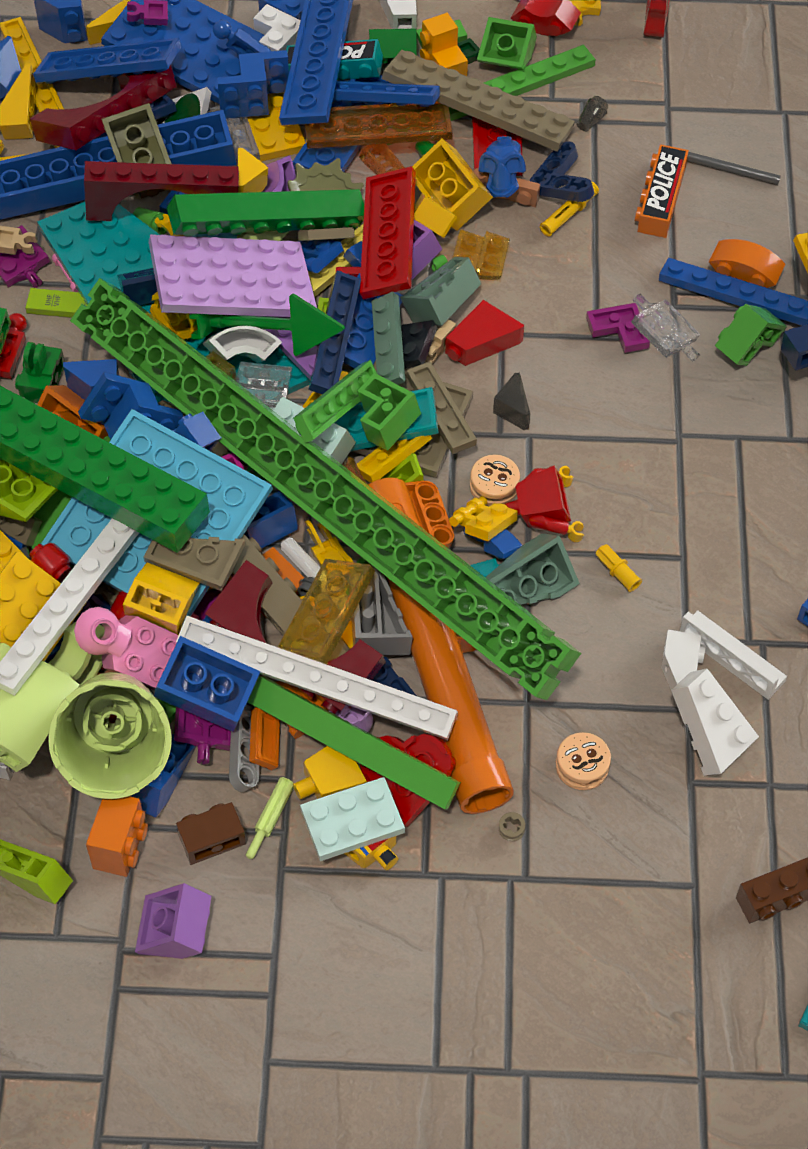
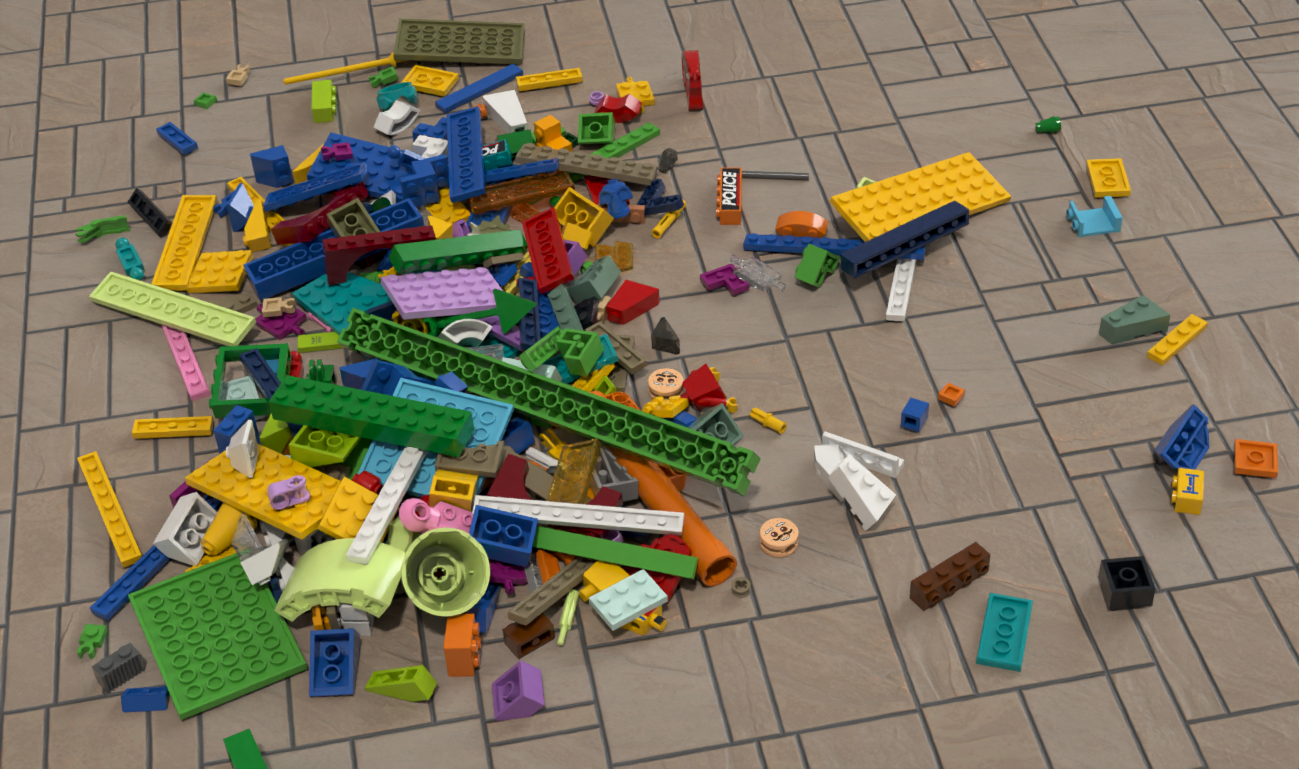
camera: 10 degrees left, 15 degrees down
(252, 781) = (550, 591): none -> dark tan plate

